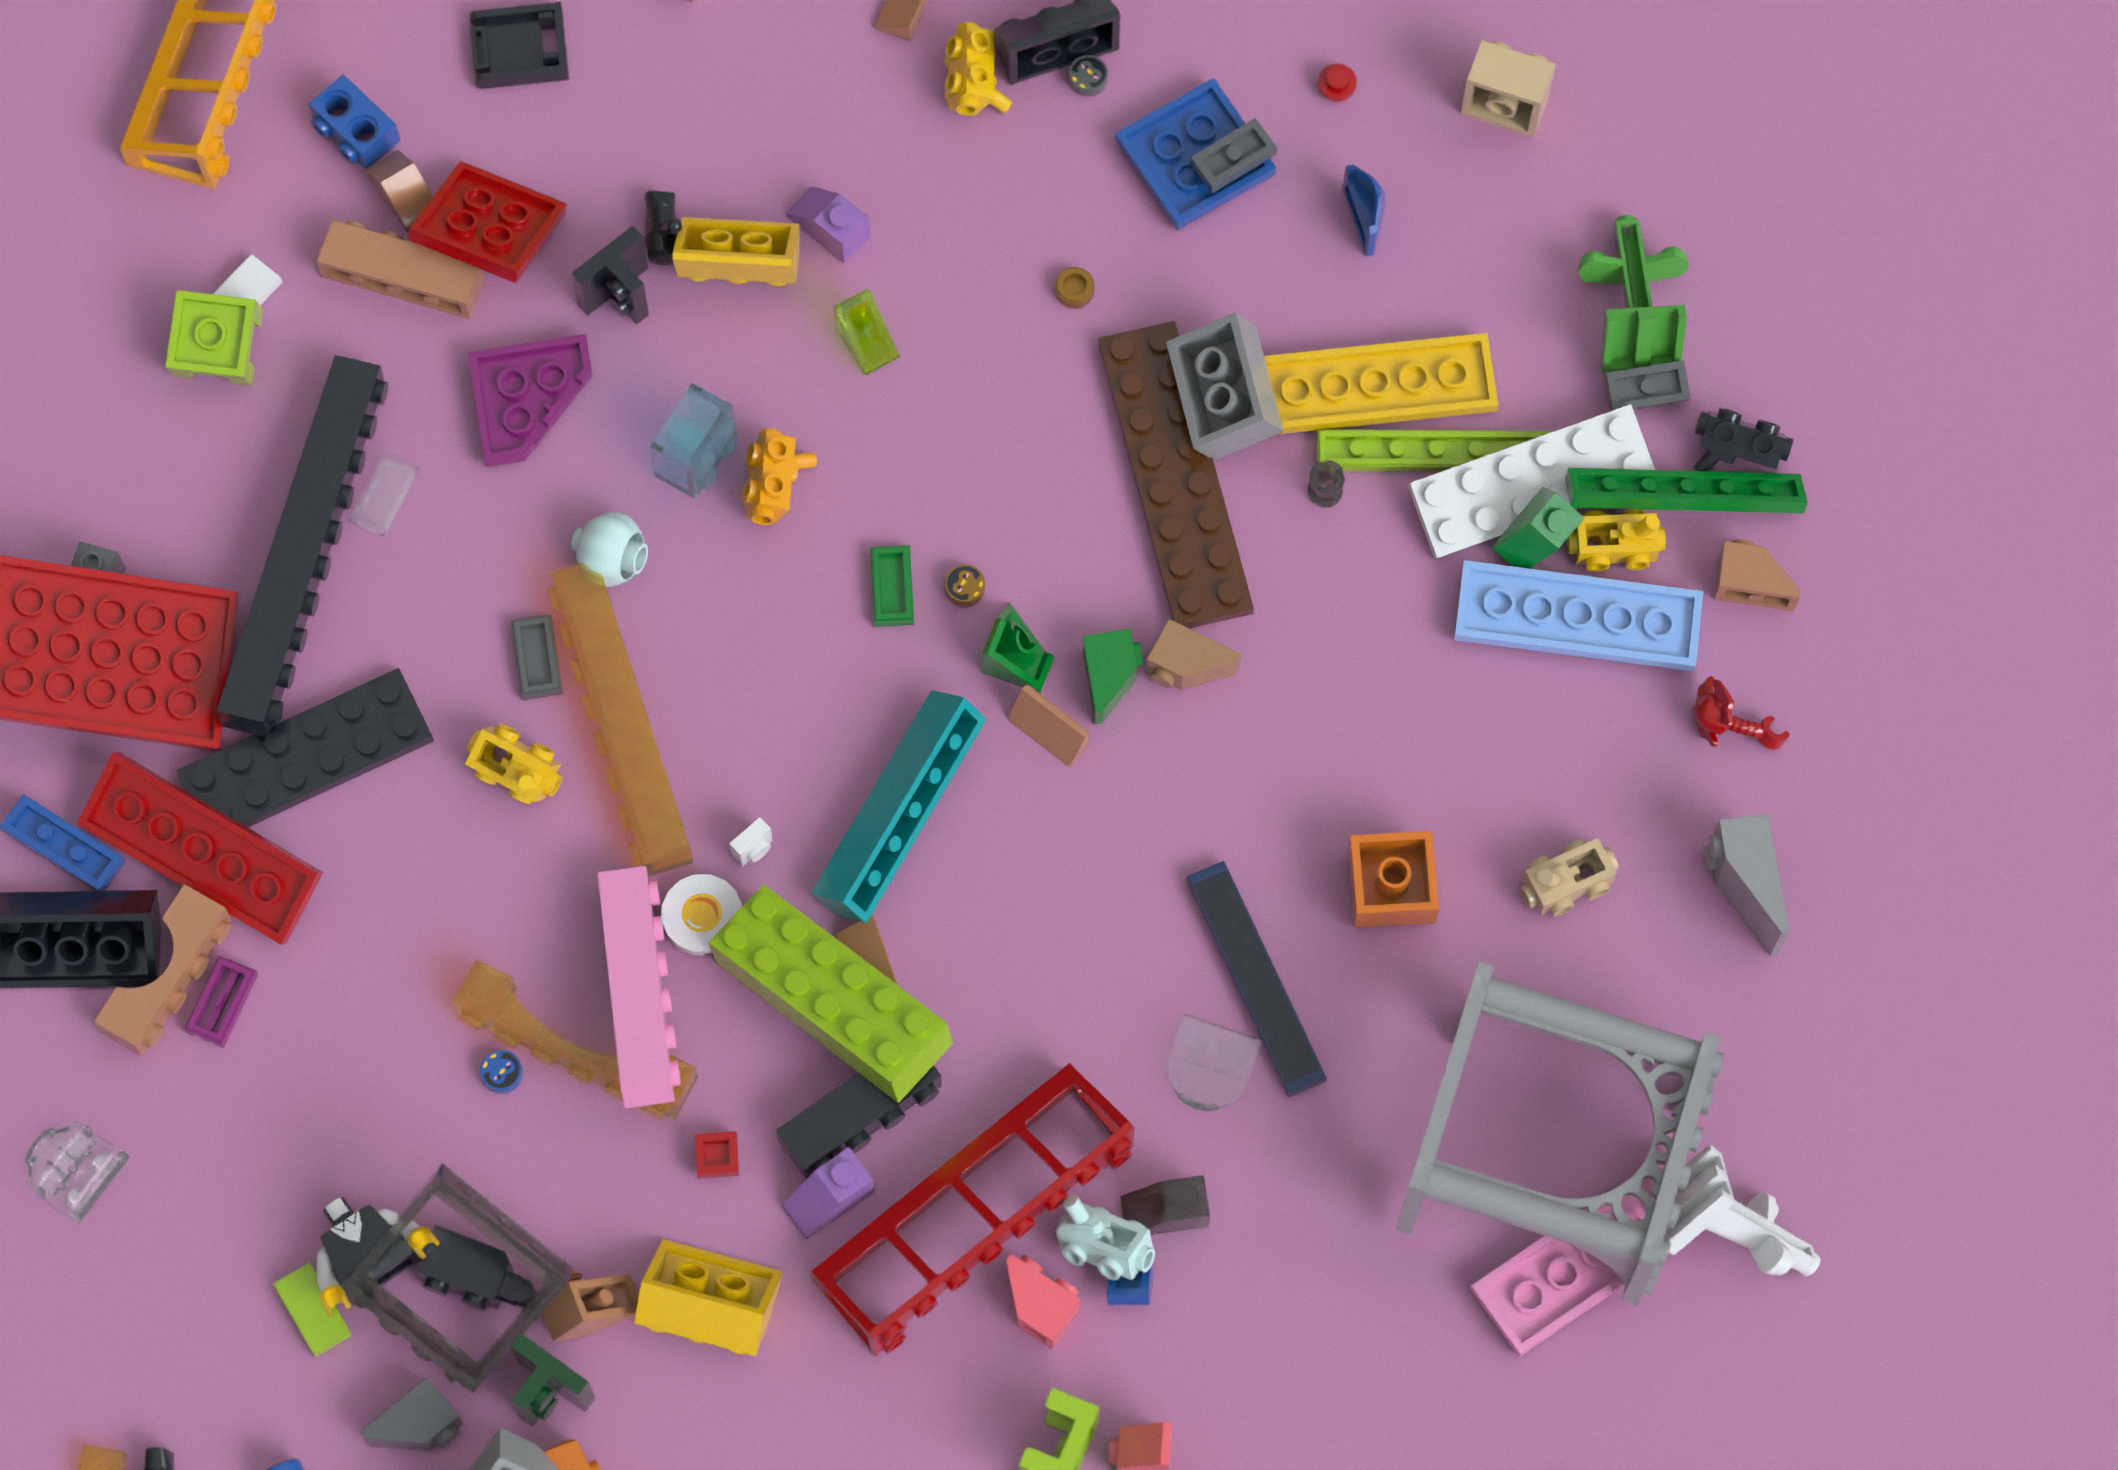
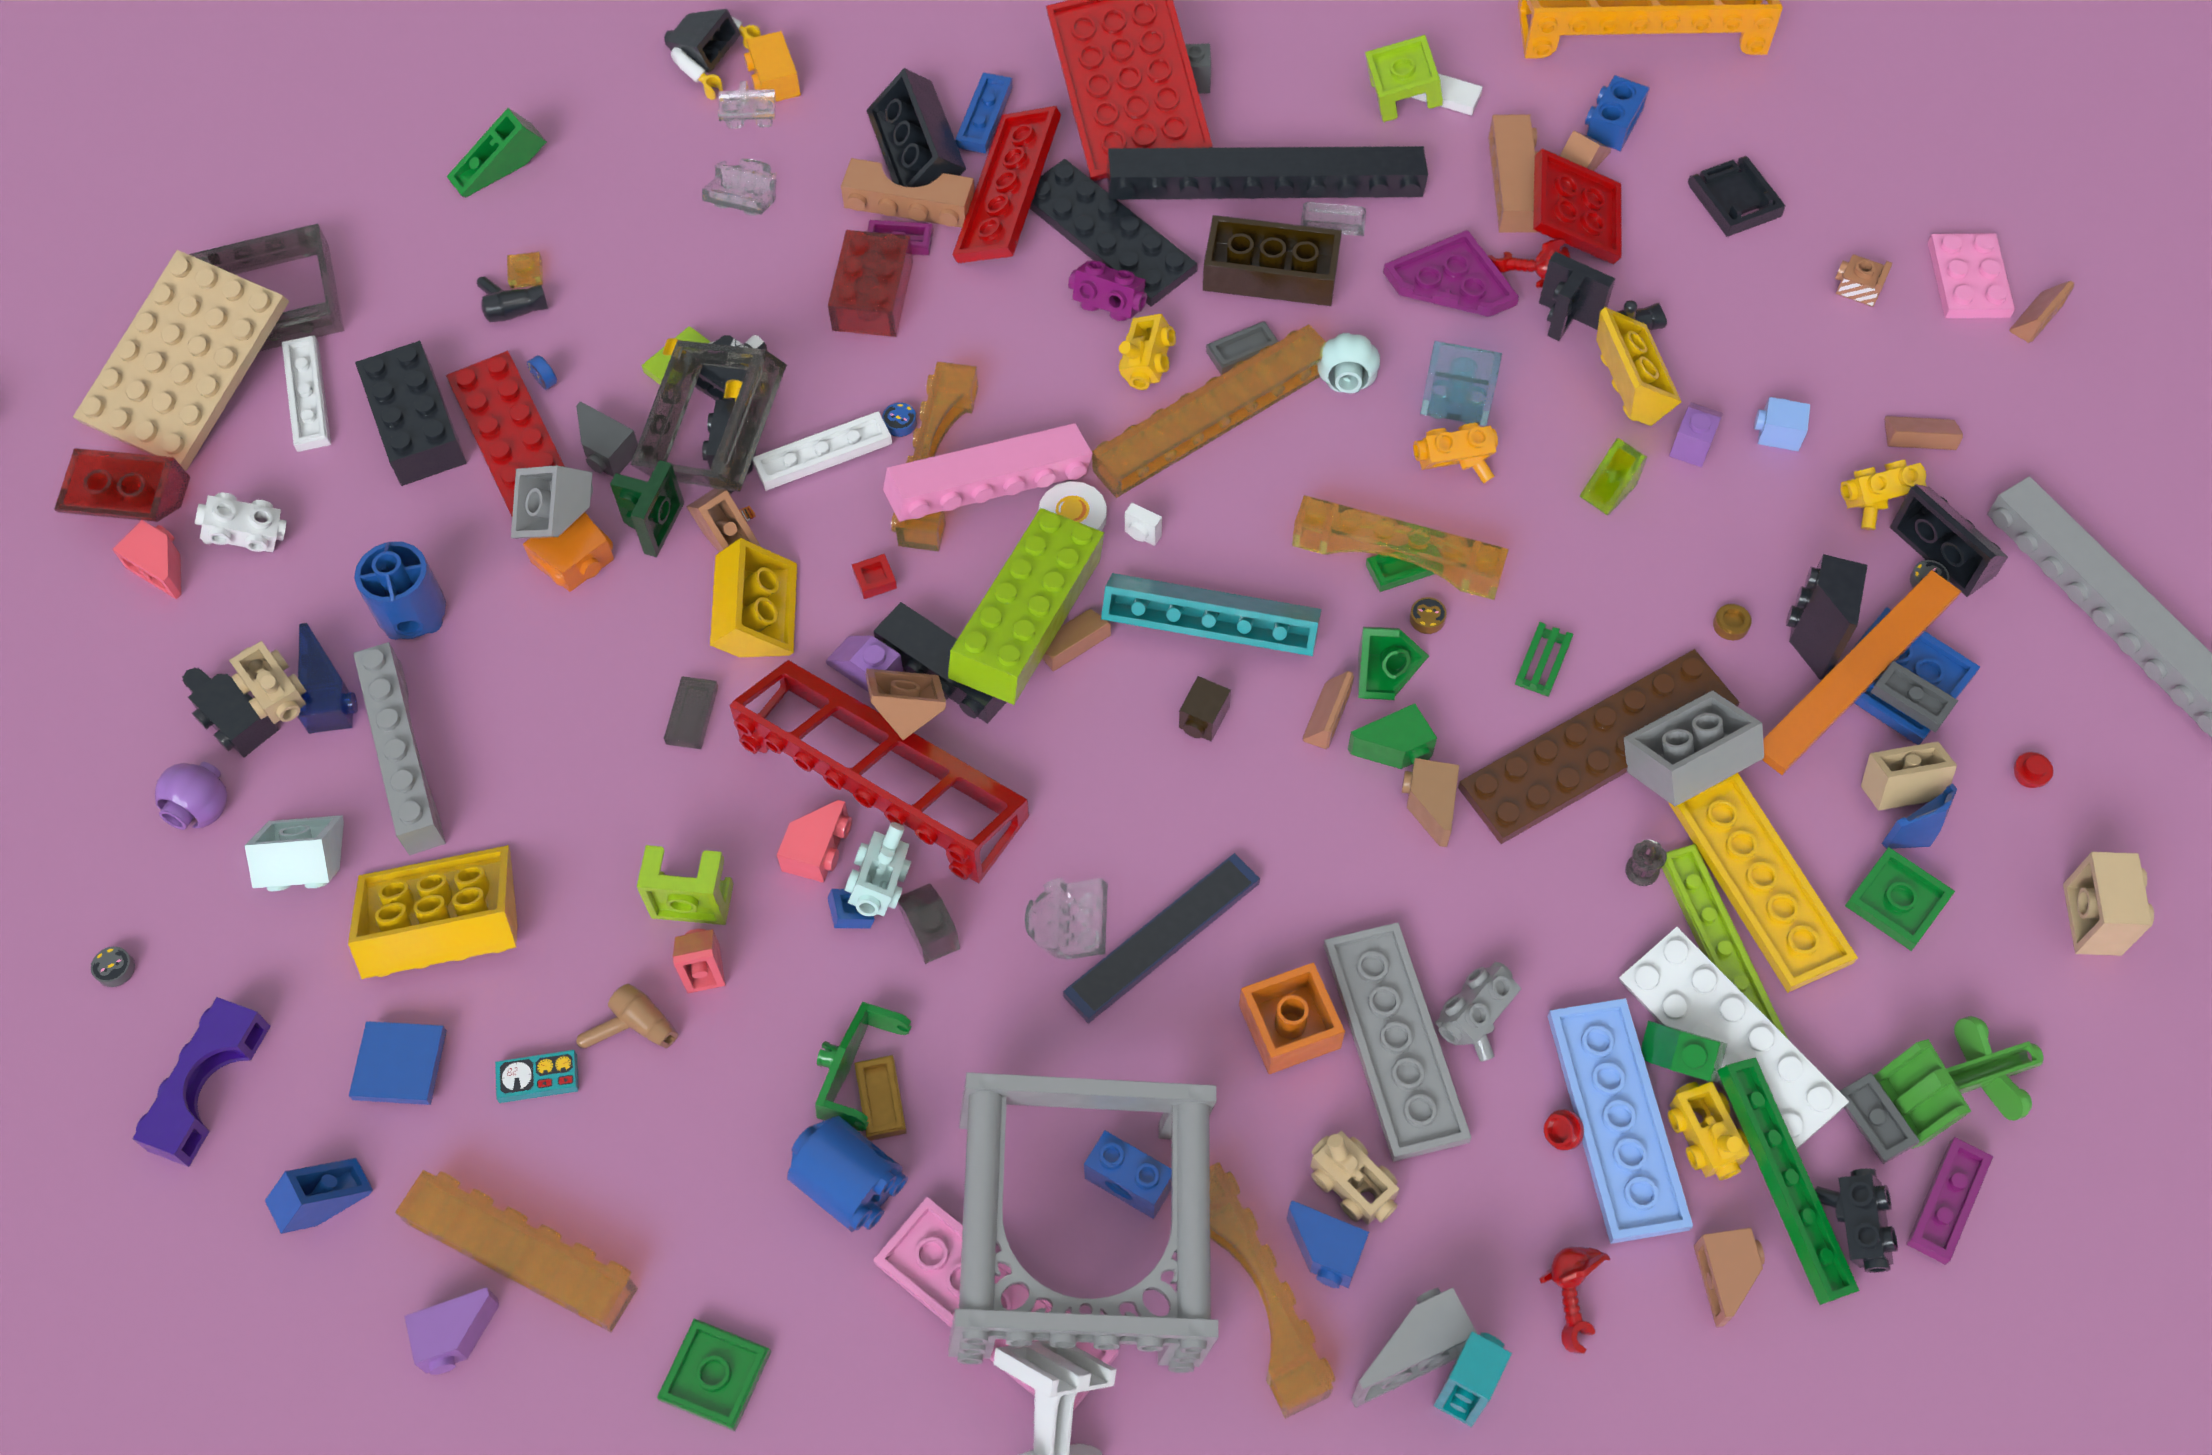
camera: 75 degrees right, 10 degrees down
(293, 1050) = (870, 283): none -> clear red brick
(407, 779) = (1108, 290): none -> magenta brick
(437, 582) = (1271, 260): none -> dark brown brick
(519, 1159) = (822, 450): none -> white plate
(557, 288) = (1538, 265): none -> red piece
(826, 1401) = (691, 712): none -> clear smoke tile
(844, 622) = (1461, 561): none -> clear yellow arch
(853, 132) = (1782, 423): none -> light blue brick
(916, 1149) = (905, 698): none -> nougat slope
(1010, 852) = (1204, 709): none -> dark brown brick
(1068, 479) = (1552, 636): none -> green tile
(1124, 195) = (1827, 612): none -> black slope
(1183, 192) = (1857, 671): none -> orange tile
(1301, 1334) = (841, 1058): none -> green piece
(1315, 200) = (1907, 775): none -> tan brick
(1346, 1308) = (880, 1097): none -> pearl gold tile
(1429, 1356) = (844, 1173): none -> blue cylinder
(1432, 700) = (1472, 1012): none -> light grey brick
(1435, 267) = (1900, 898): none -> green plate
(1438, 790) = (1396, 1042): none -> light grey plate
(1505, 1085) = (1128, 1174): none -> blue brick
(1575, 669) = (1564, 1129): none -> red plate
(1627, 924) = (1326, 1244): none -> blue slope
(1730, 994) = (1294, 1369): none -> clear yellow arch
(1741, 359) = (1949, 1200): none -> magenta plate
(1802, 833) = (1473, 1378): none -> teal brick

